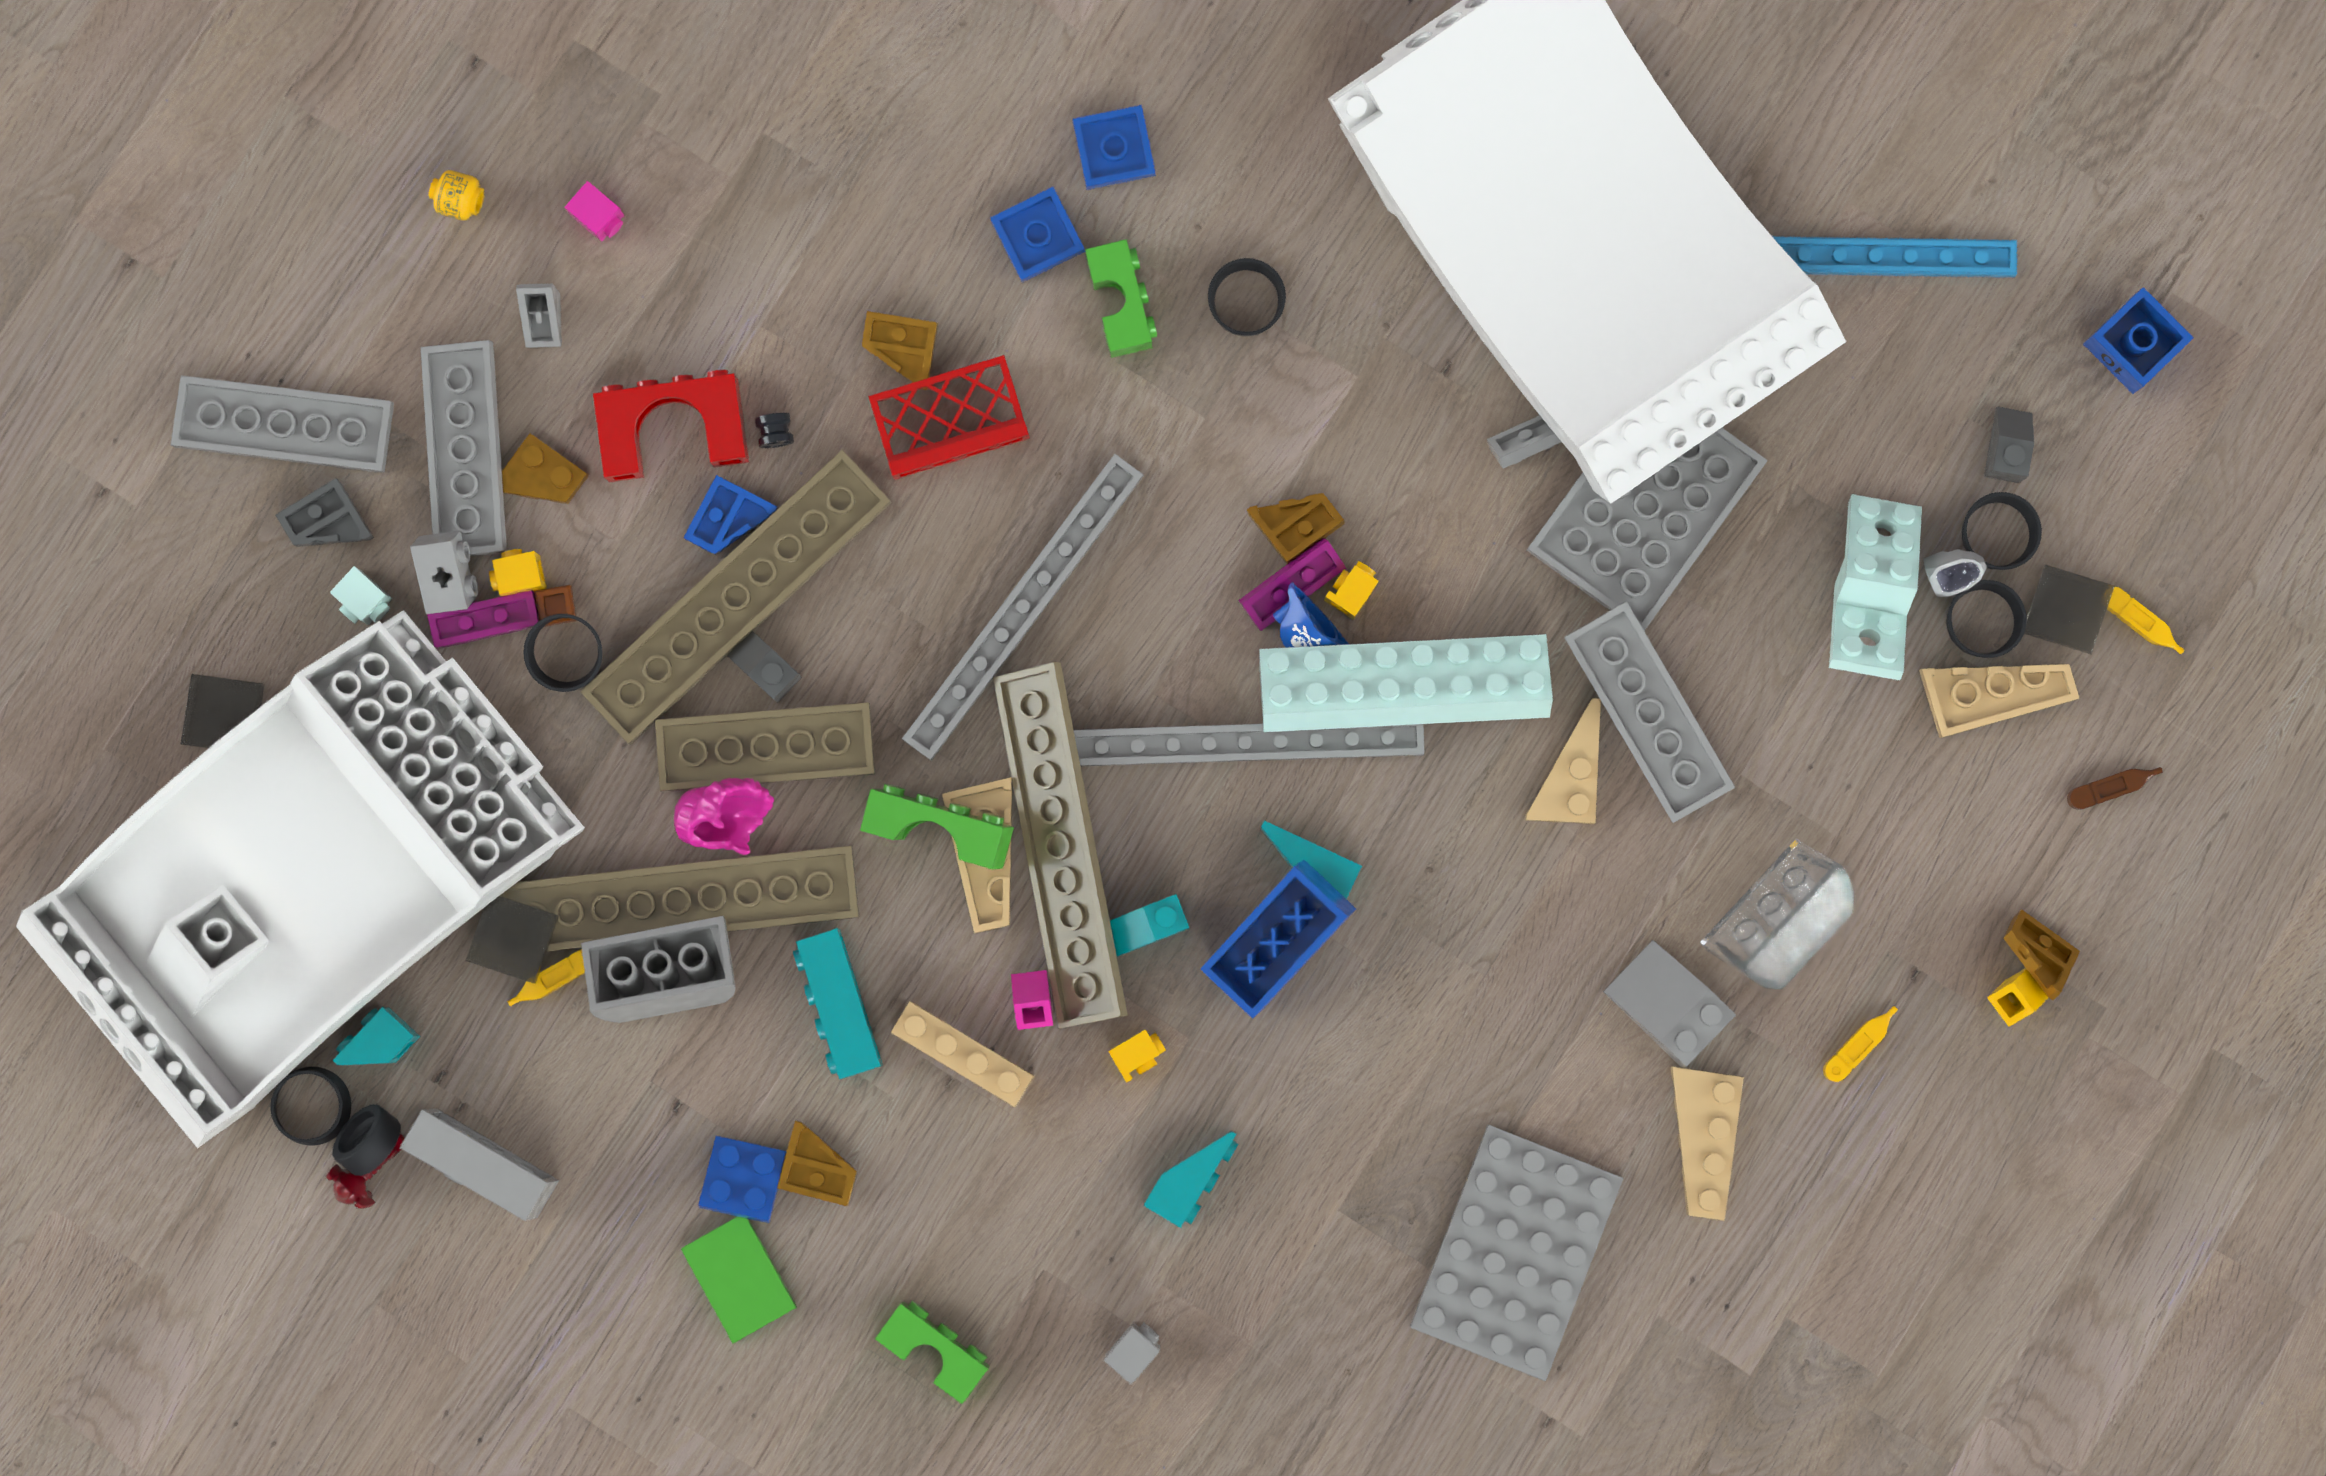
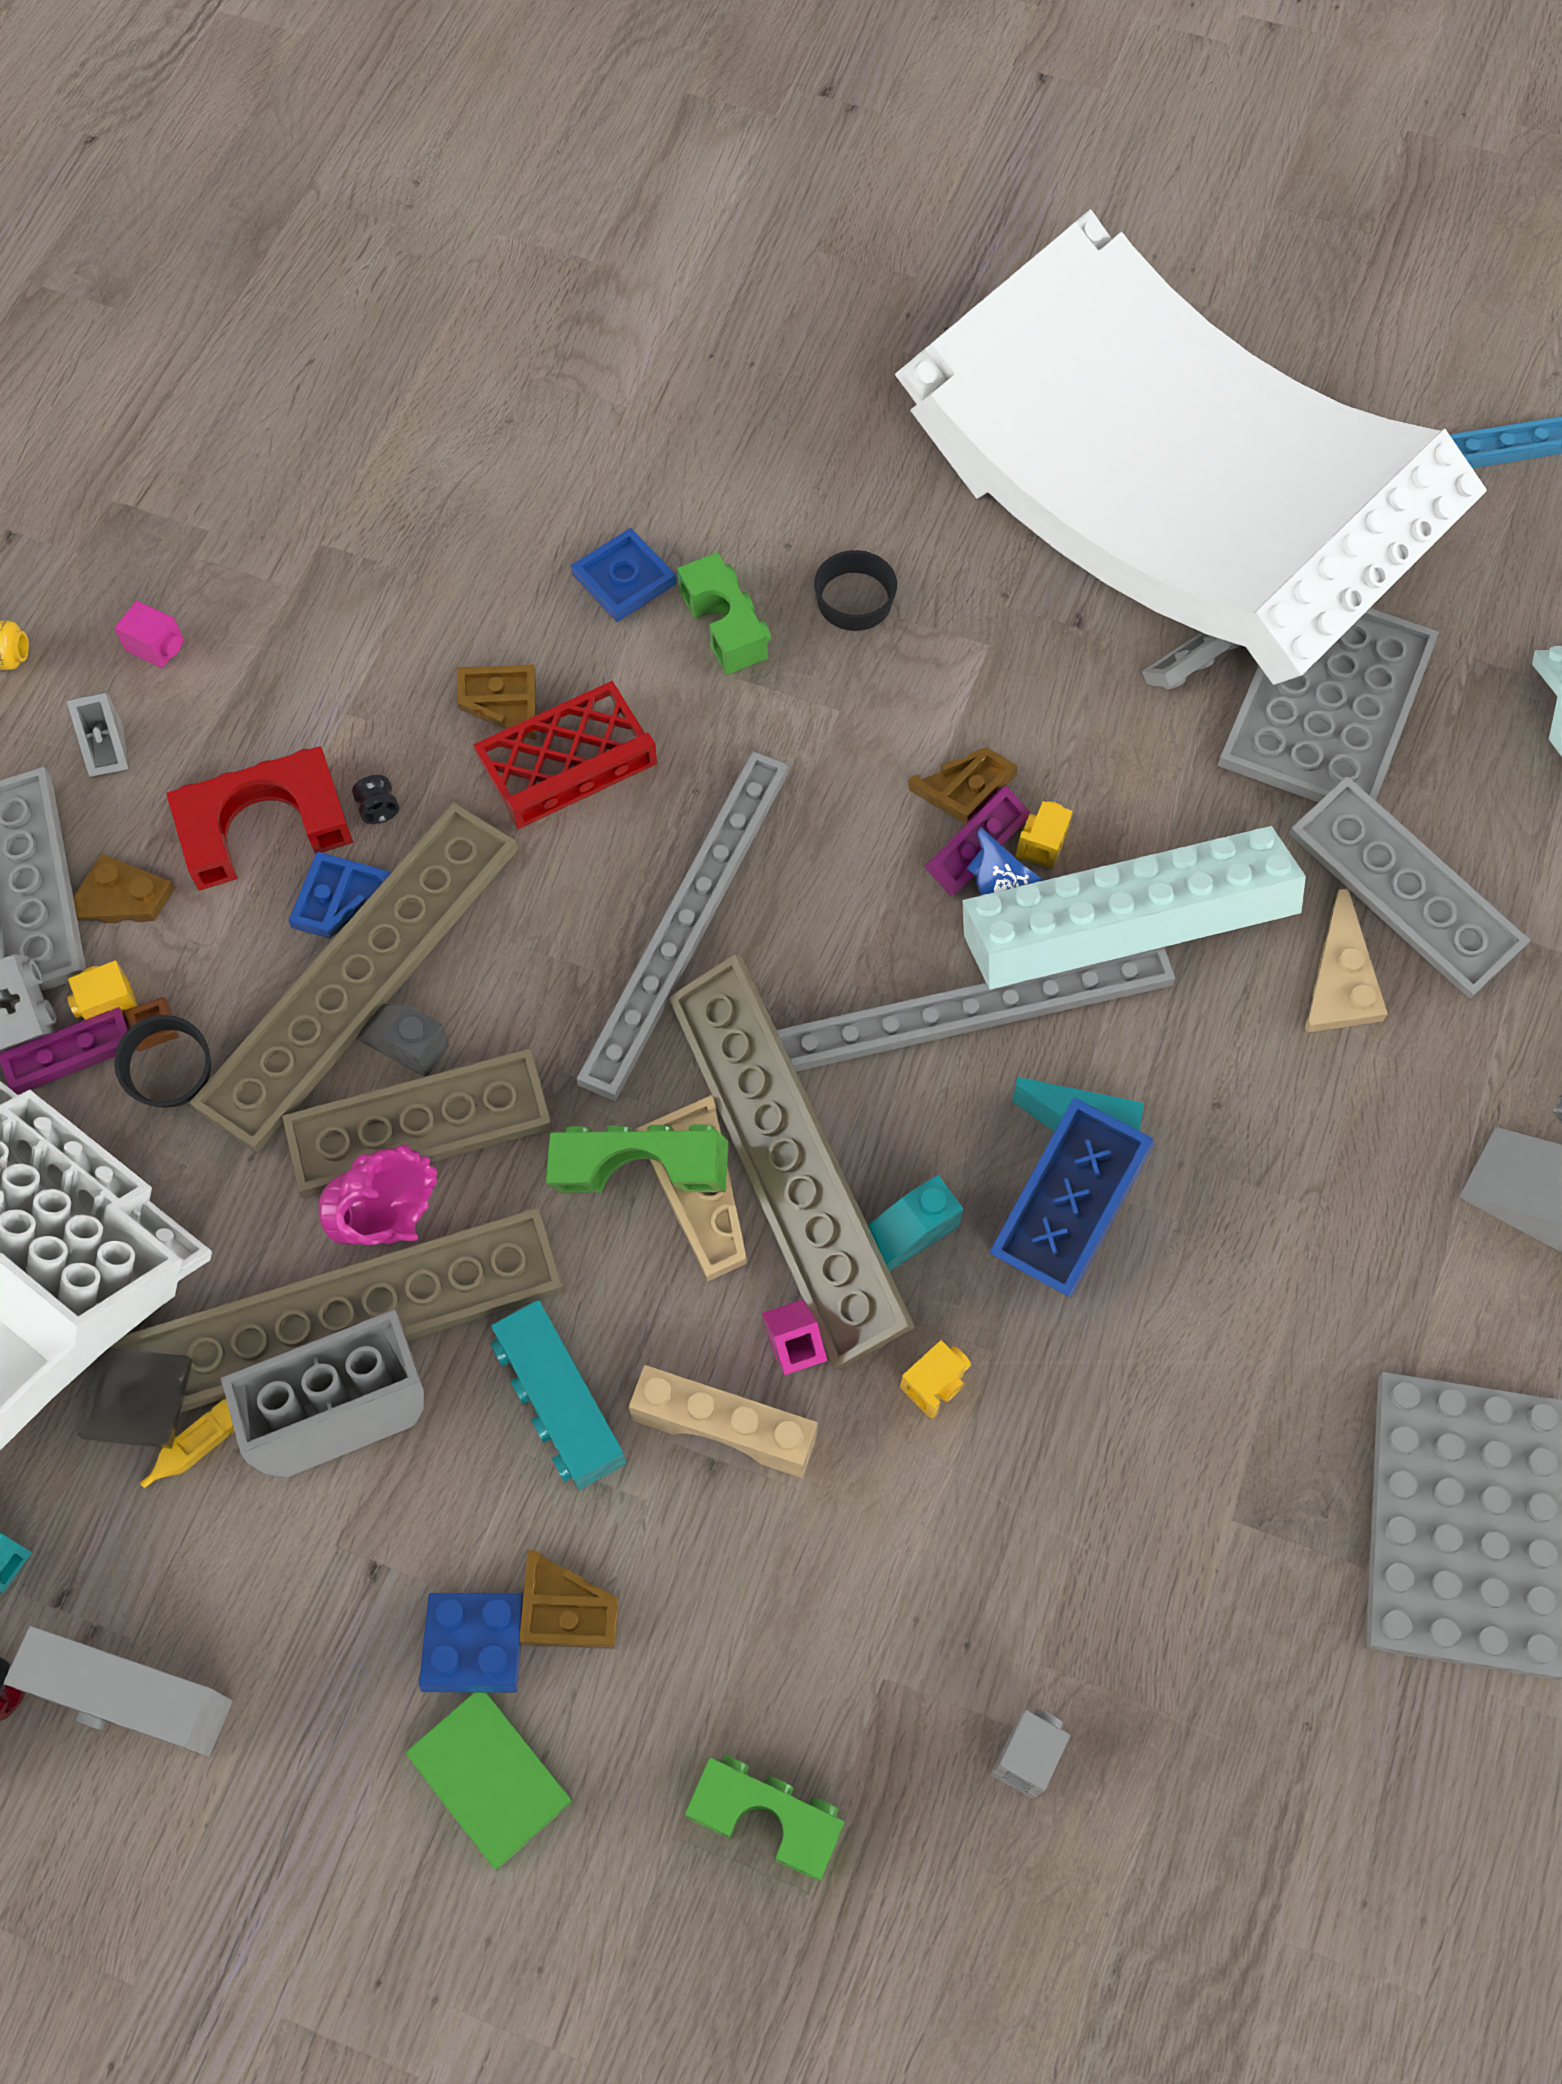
camera: 15 degrees left, 20 degrees down
(1114, 147) = (685, 488): blue plate -> none
(1181, 1185) = (1034, 1524): teal slope -> none

